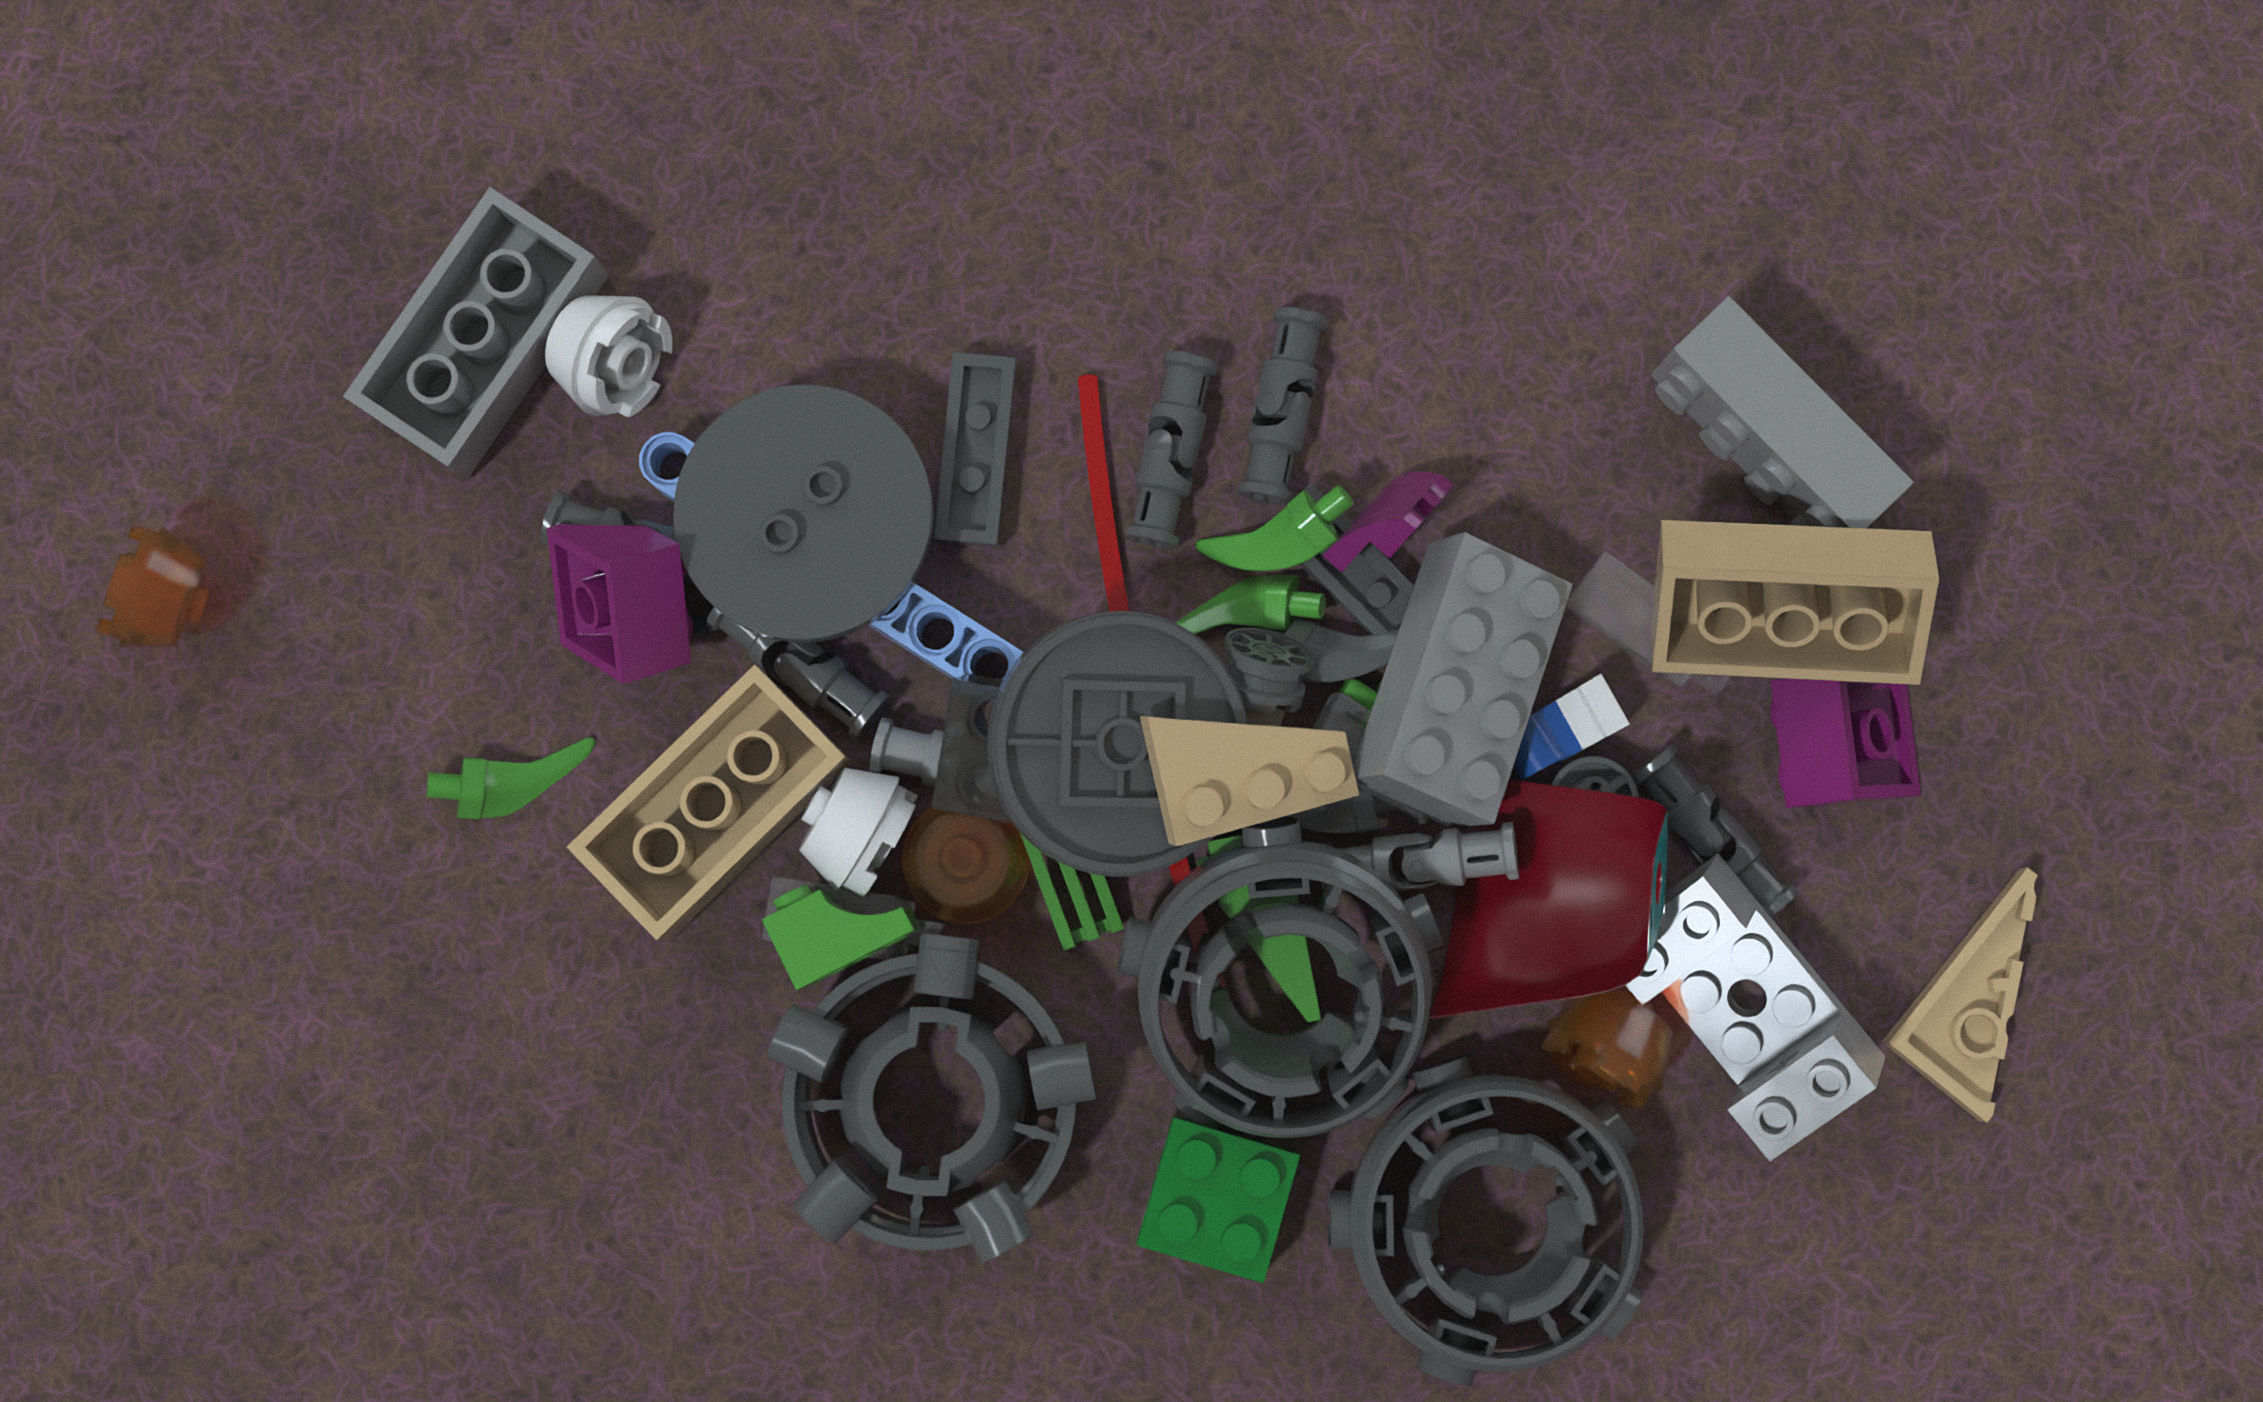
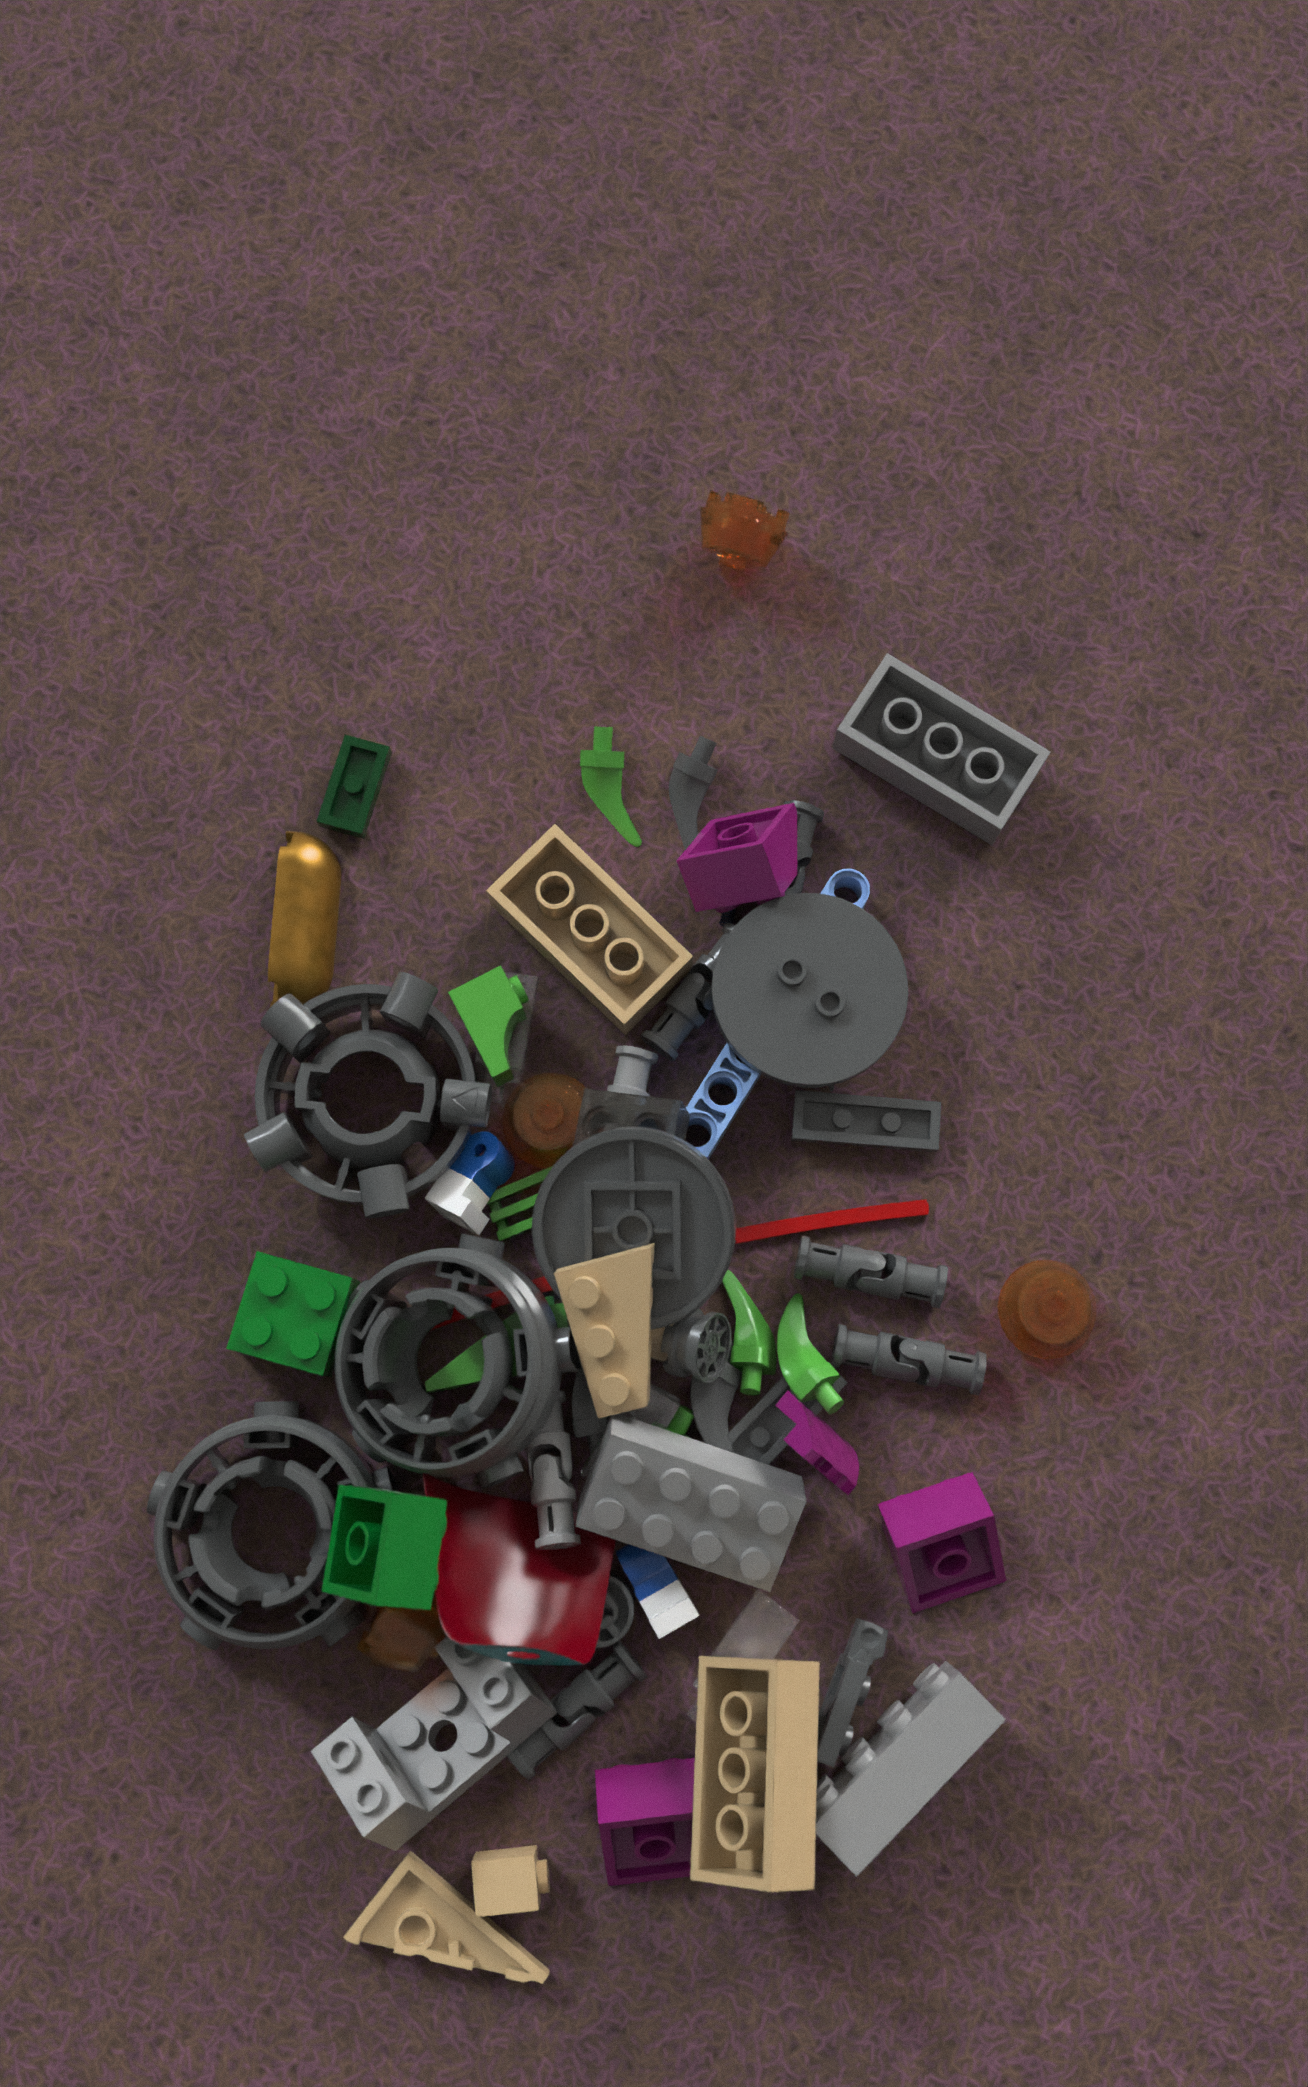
camera: 85 degrees right, 5 degrees down
(498, 1127) = (354, 786): none -> dark green plate
(515, 672) = (689, 785): none -> dark grey bar
(607, 353) = (929, 843): white cone -> none
(685, 1193) = (304, 918): none -> pearl gold brick
(855, 827) = (572, 1035): white cone -> none
(1047, 963) = (472, 1181): none -> leg
(1220, 230) = (1047, 1309): none -> clear orange cone
(1507, 371) = (943, 1541): none -> magenta slope
(1524, 1062) = (385, 1547): none -> green brick
(1682, 490) = (847, 1689): none -> dark grey hinge
(1917, 915) = (509, 1880): none -> tan brick

